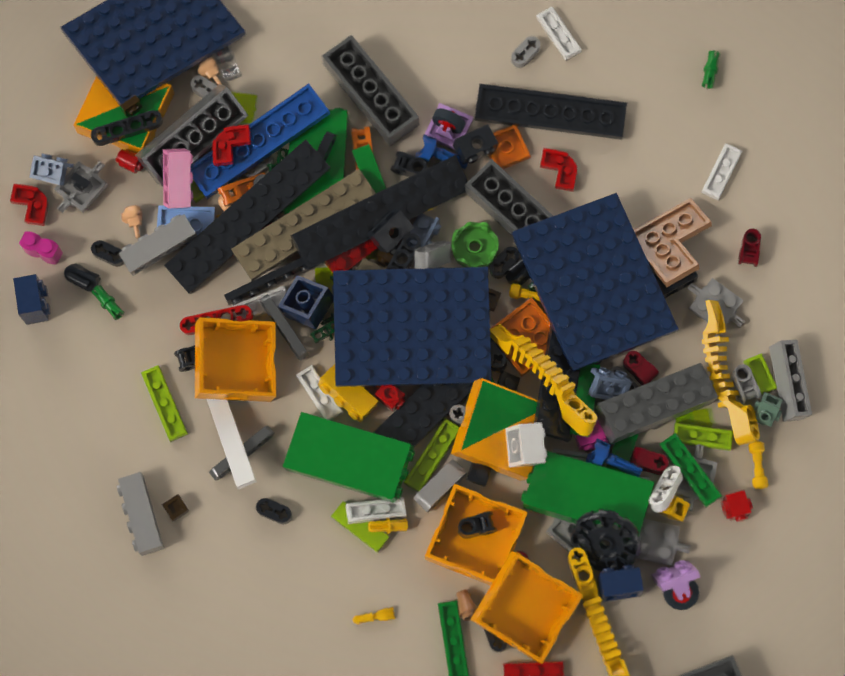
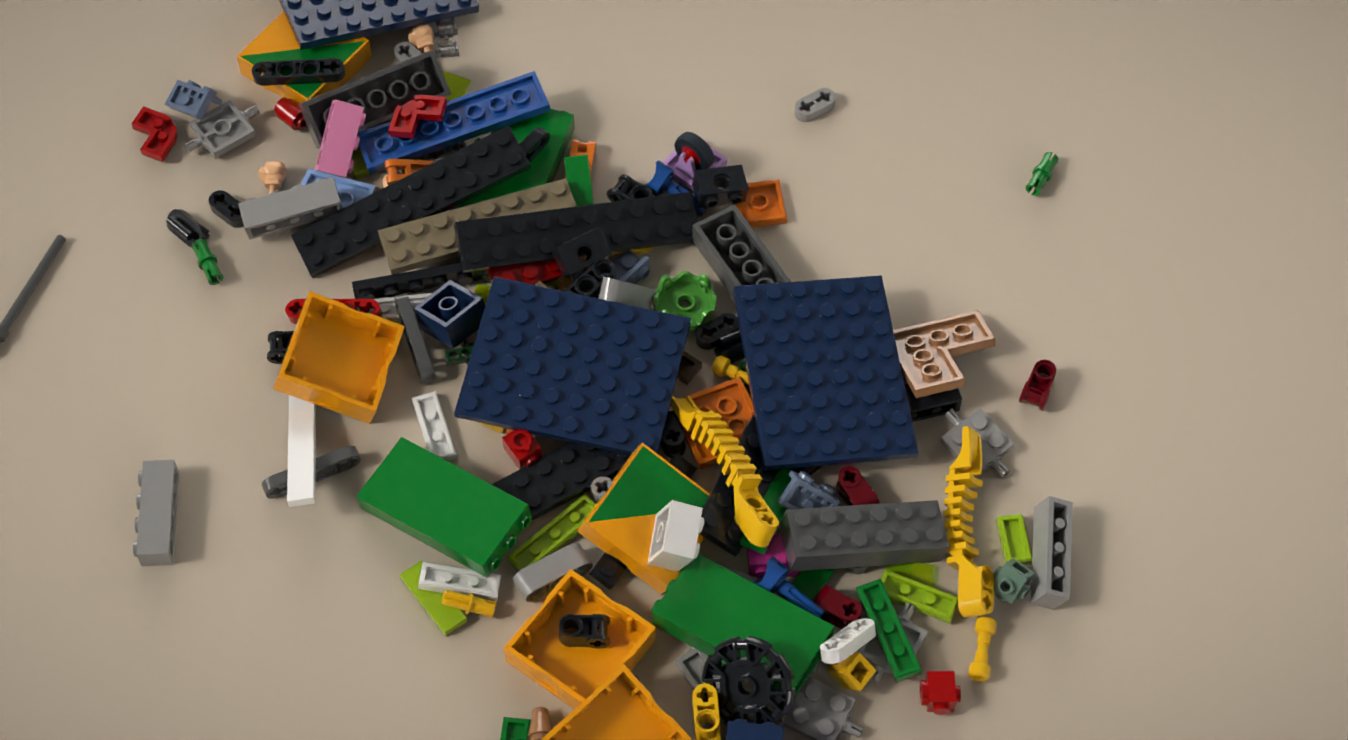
camera: 10 degrees right, 15 degrees down
(31, 299) = (114, 233): dark blue brick -> none
(38, 247) = (148, 182): dark pink brick -> none
(81, 183) = (222, 119): black plate -> none
(131, 106) = (312, 47): dark brown plate -> none
(164, 403) = (235, 393): lime tile -> none
(175, 507) = (204, 516): dark brown plate -> none
(276, 507) = (325, 556): black beam -> none
(353, 399) = (473, 439): yellow brick -> none
(370, 90) = (610, 101): dark grey brick -> none
(382, 615) = (426, 713): yellow piece -> none
(550, 111) = (827, 175): black plate -> none
(558, 33) = (862, 95): white tile -> none
(564, 164) = (825, 237): red plate -> none
(721, 171) = (1026, 291): white tile -> none
(746, 385) = (991, 547): light grey piece -> none

